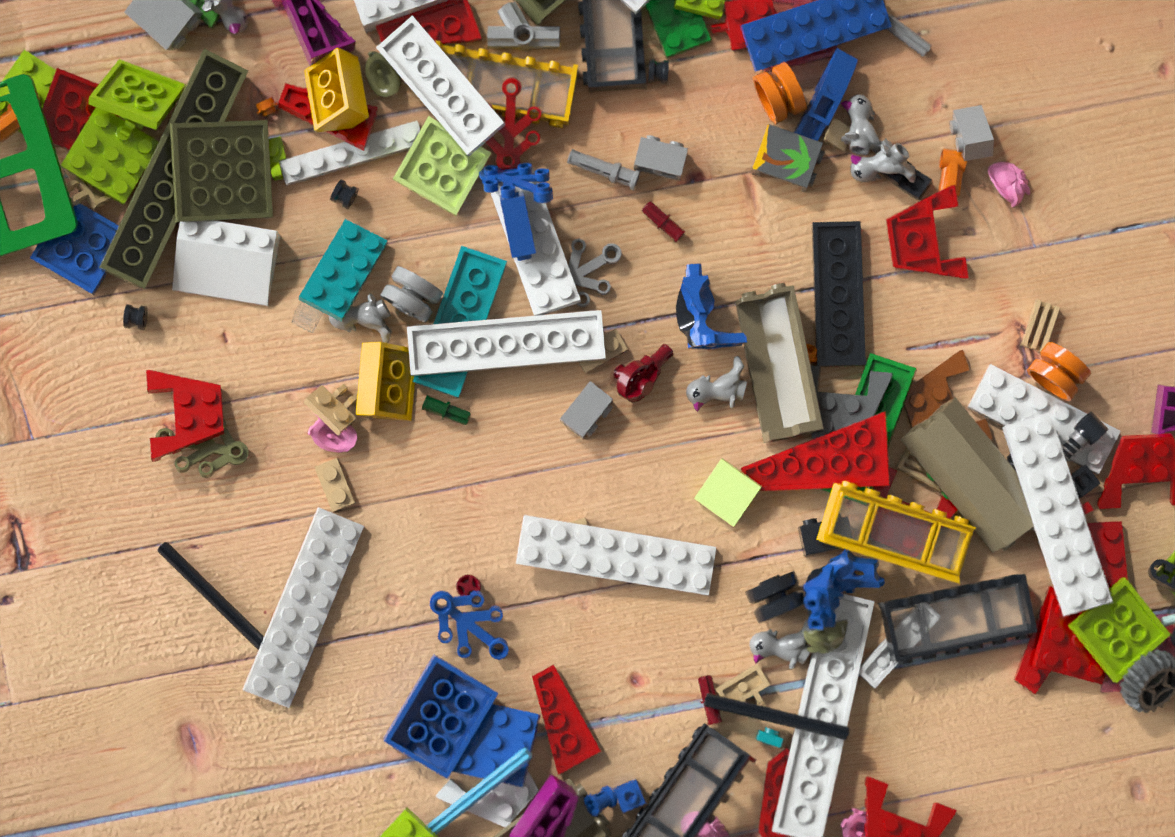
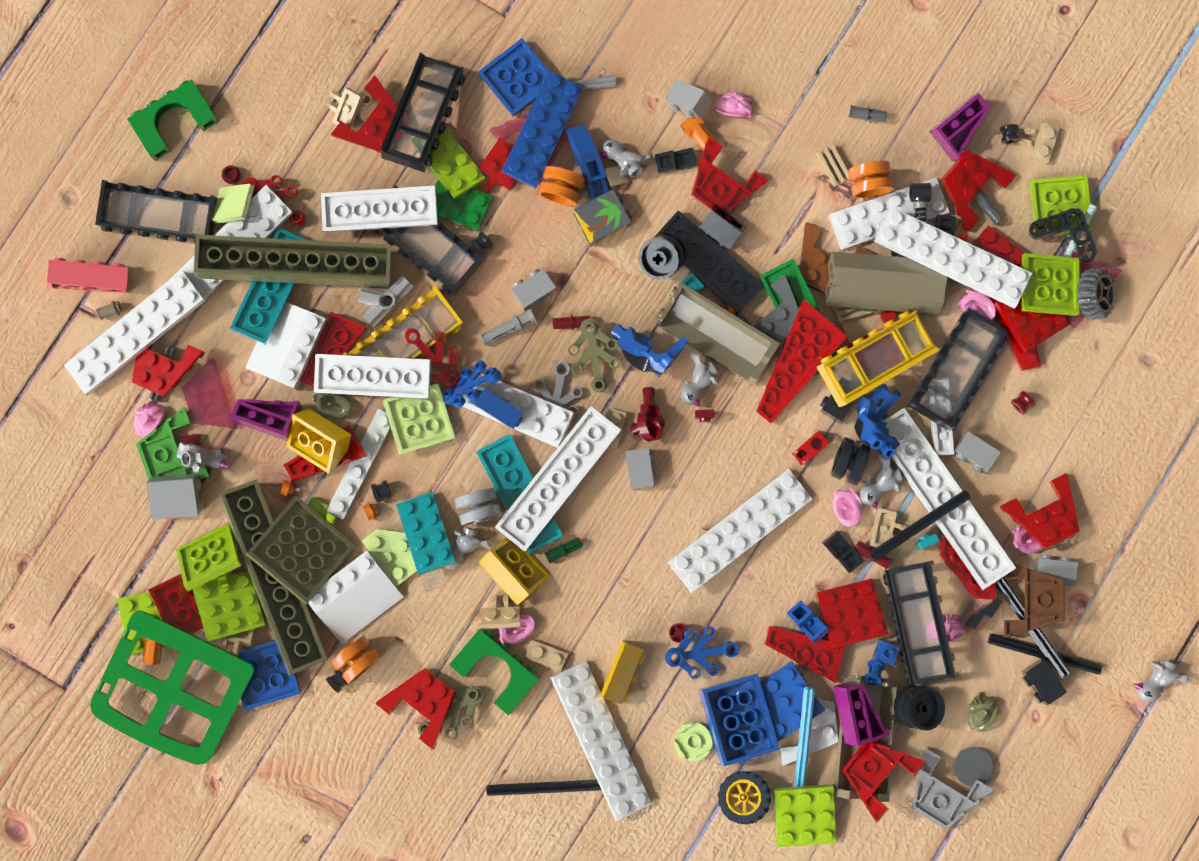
camera: 40 degrees left, 0 degrees up
(168, 314) = (354, 657): none -> orange wheel
(292, 481) = (521, 678): none -> green arch
(295, 257) = (392, 554): none -> yellowish green plate
(317, 201) = (370, 511): none -> orange plate
(360, 767) = (759, 809): none -> black wheel
(381, 693) = (693, 741): none -> yellowish green tile
(383, 568) = (622, 673): none -> yellow slope
(589, 696) = (807, 622): none -> blue brick
(636, 730) = (852, 613): none -> red plate
(654, 266) = (593, 351): none -> olive plant
(686, 669) = (842, 551): none -> black slope
(692, 423) = (704, 416): none -> dark red plate
(728, 492) = (763, 432): yellowish green tile -> none
(732, 634) = (847, 507): none -> bright pink hat
(754, 549) = (810, 448): none -> red leg
(802, 246) = (662, 256): none -> wheel
(805, 298) = (693, 283): none -> teal plate
(826, 639) = (902, 456): olive hat -> none
(883, 276) = (722, 227): none -> brick
(889, 160) = (659, 161): light grey animal -> none
(895, 707) = (976, 452): none -> light grey brick
(984, 708) = (1022, 402): none -> dark red wheel
(1038, 580) = (978, 302): none -> bright pink hat
(1119, 312) = (867, 113): none -> dark grey axle
(1138, 505) = (988, 207): none -> dark grey axle

